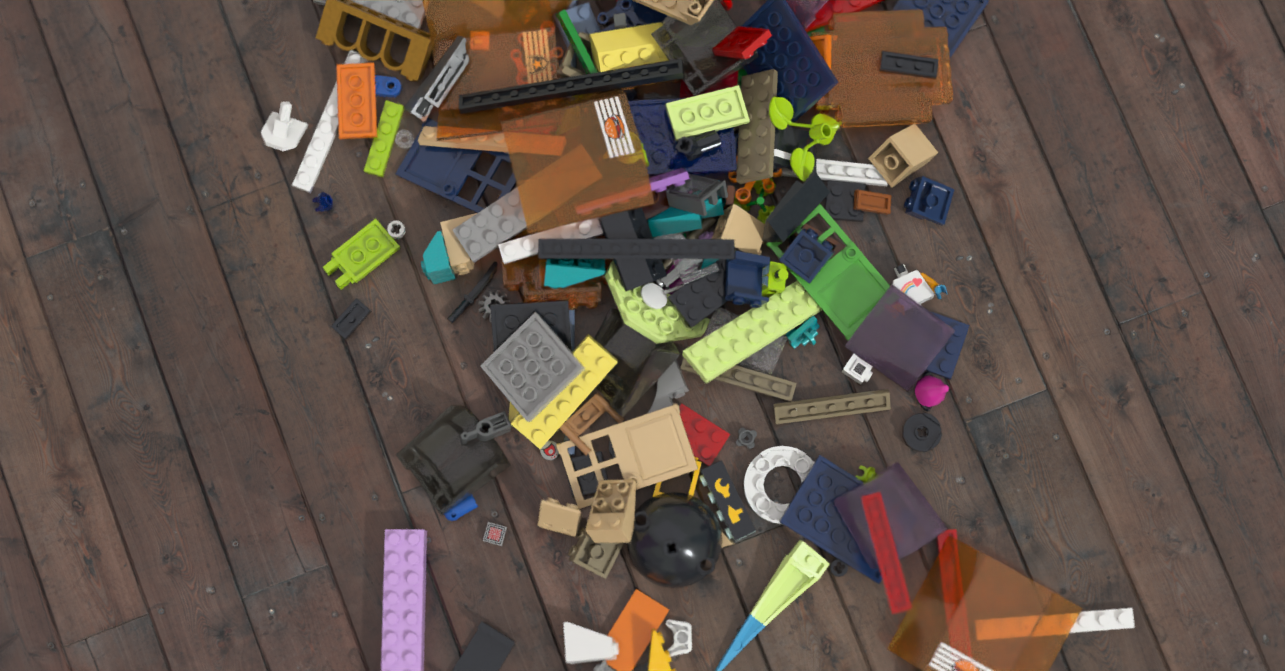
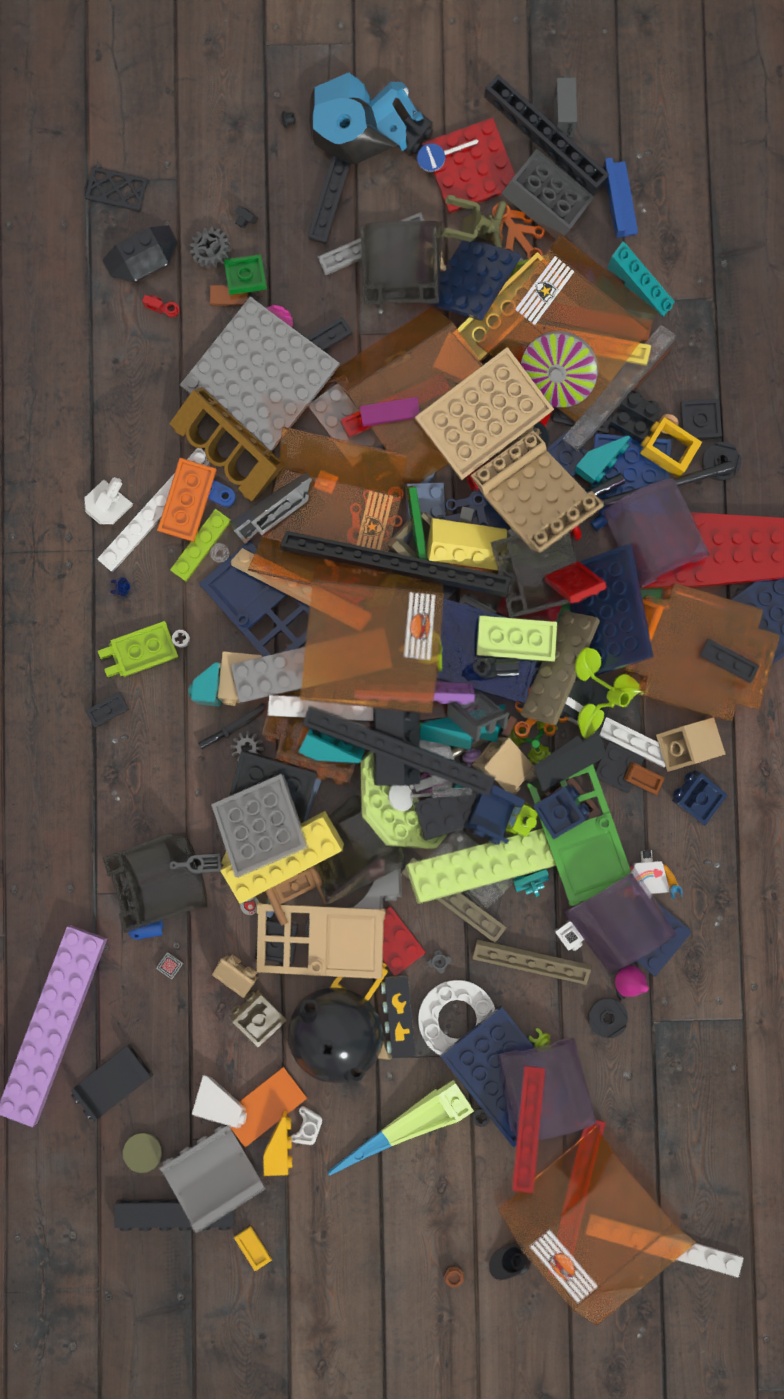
camera: 15 degrees right, 5 degrees up
(612, 512) = (286, 990): tan slope -> none

